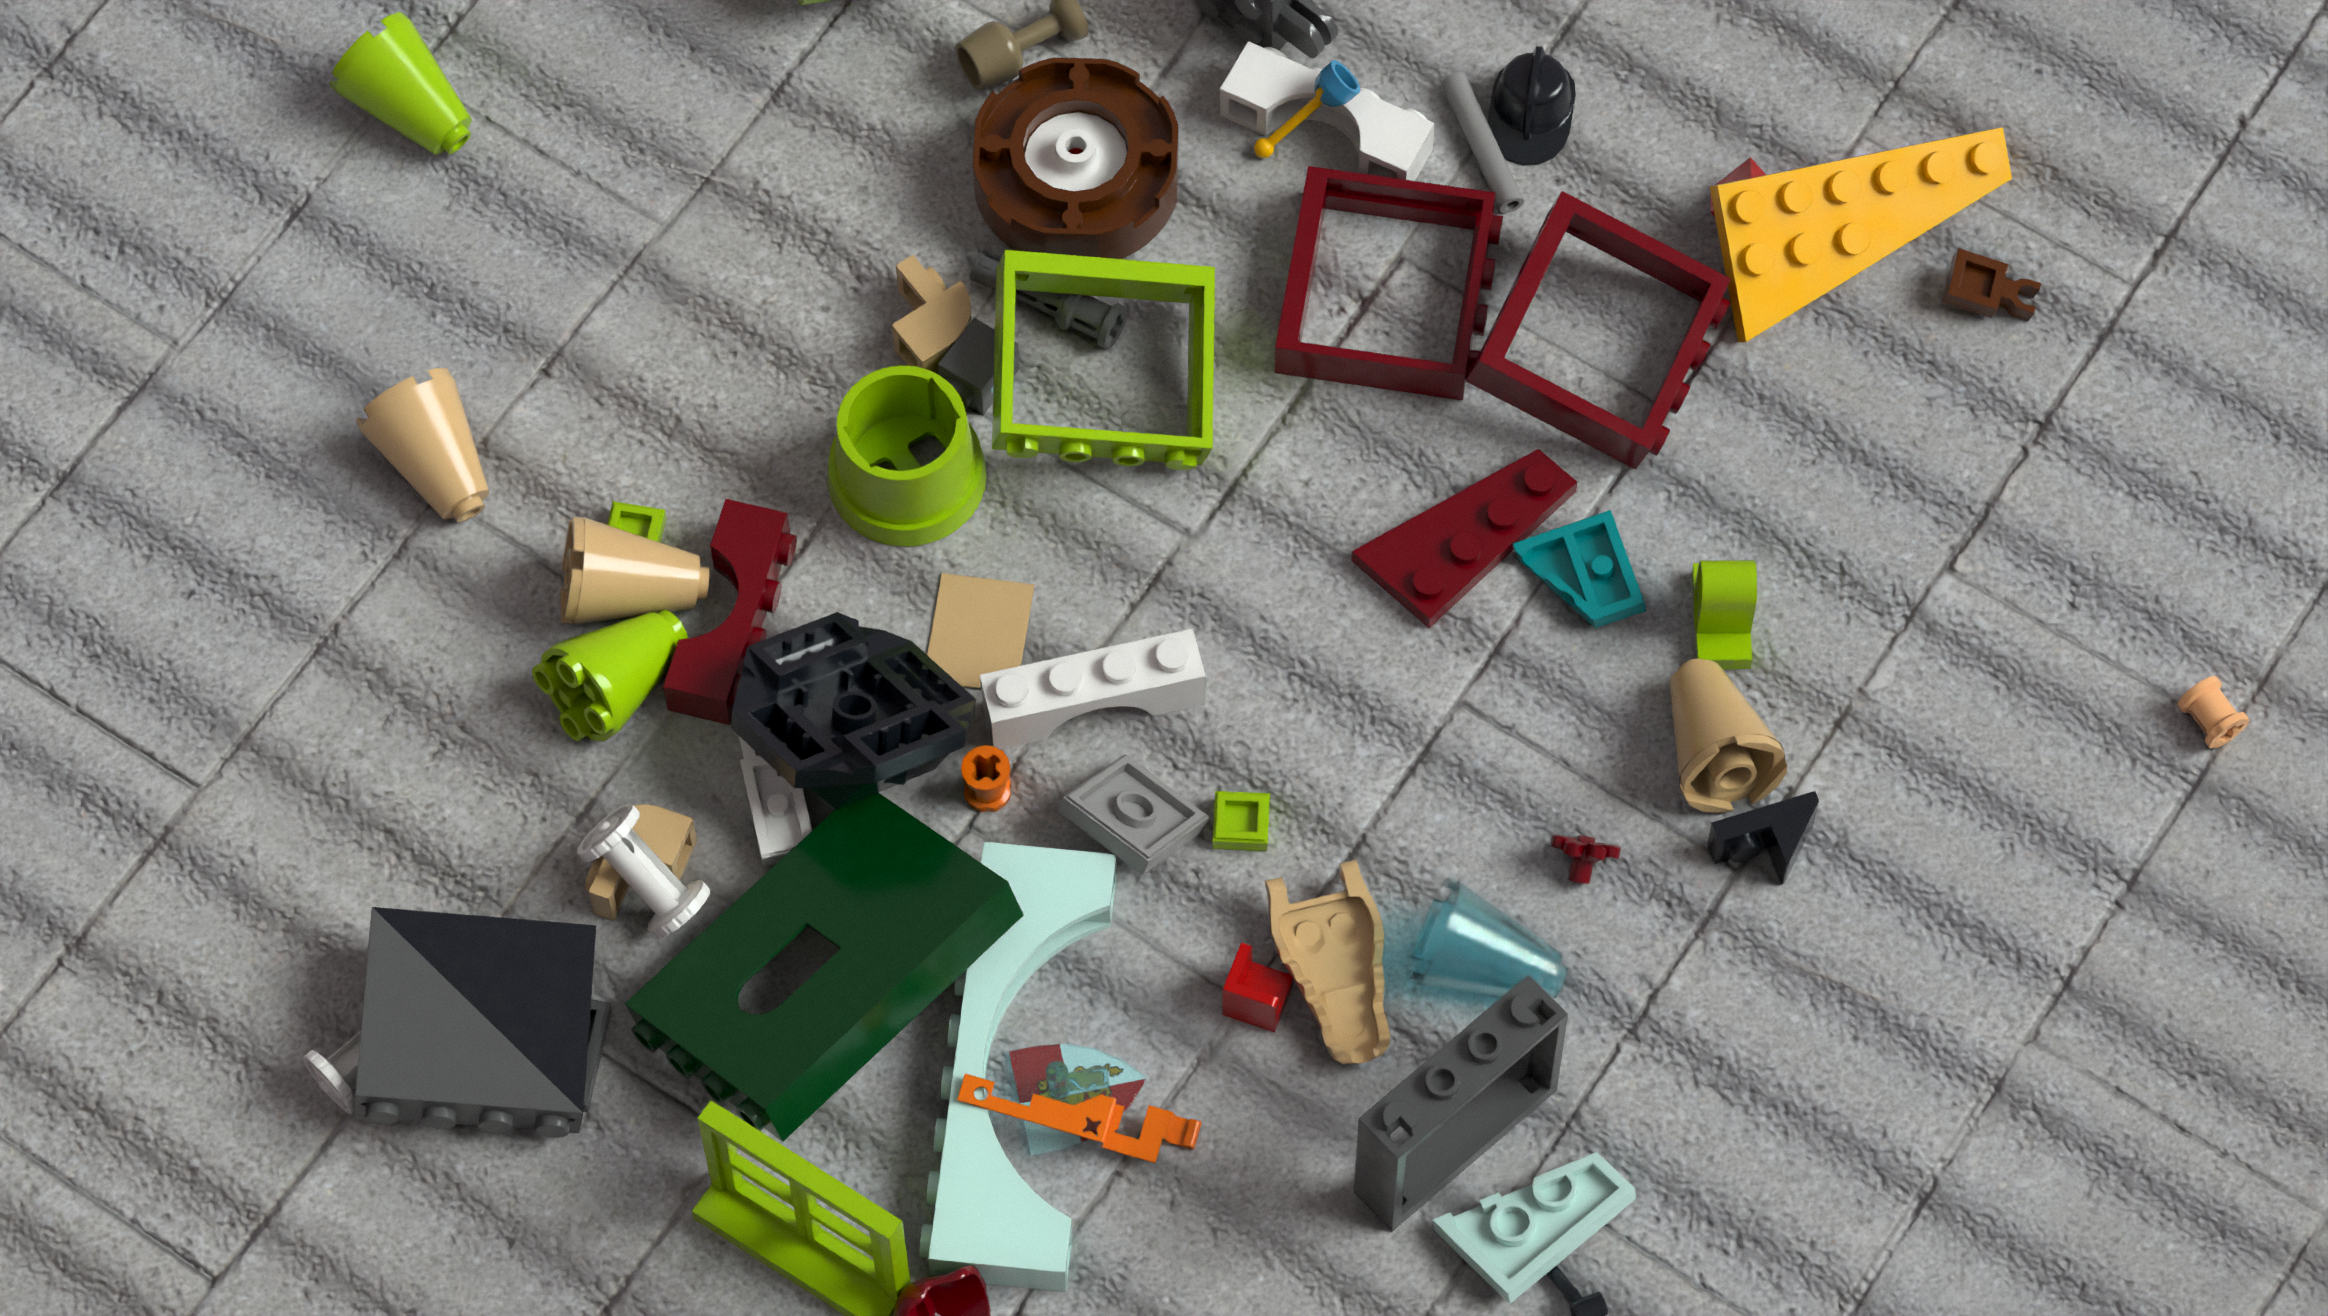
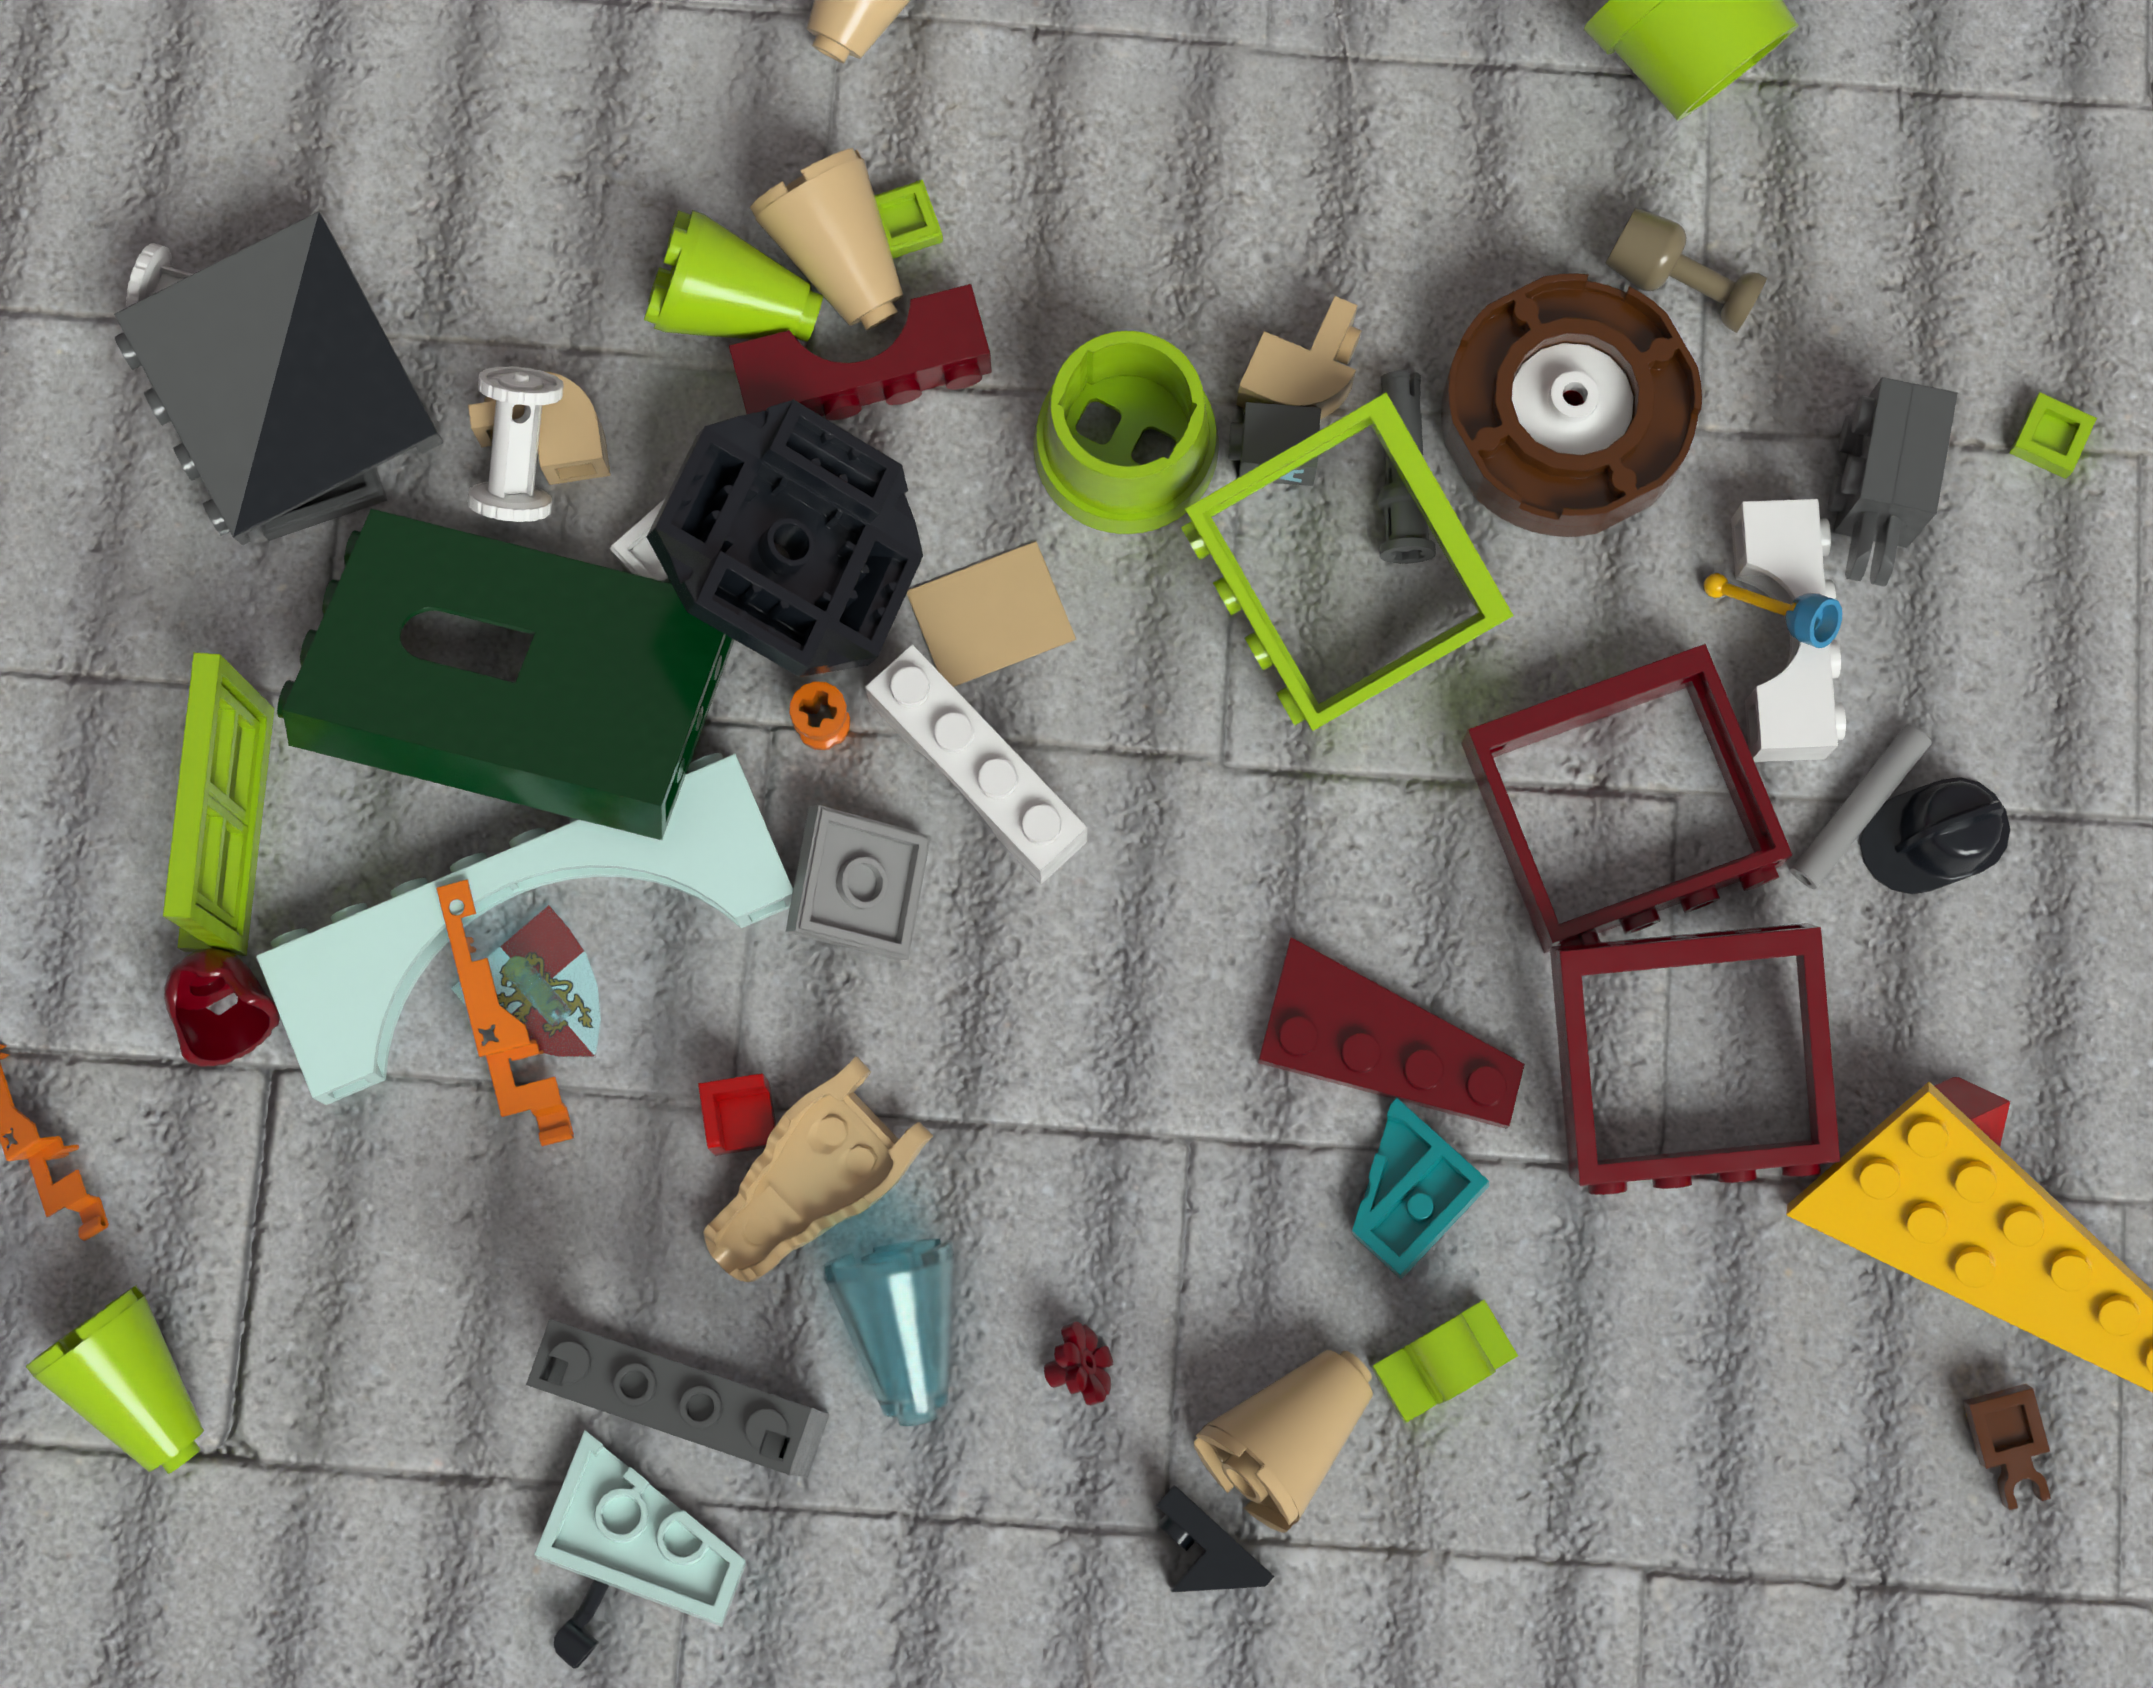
camera: 60 degrees right, 15 degrees up
(1241, 821) = (925, 993): lime tile -> none

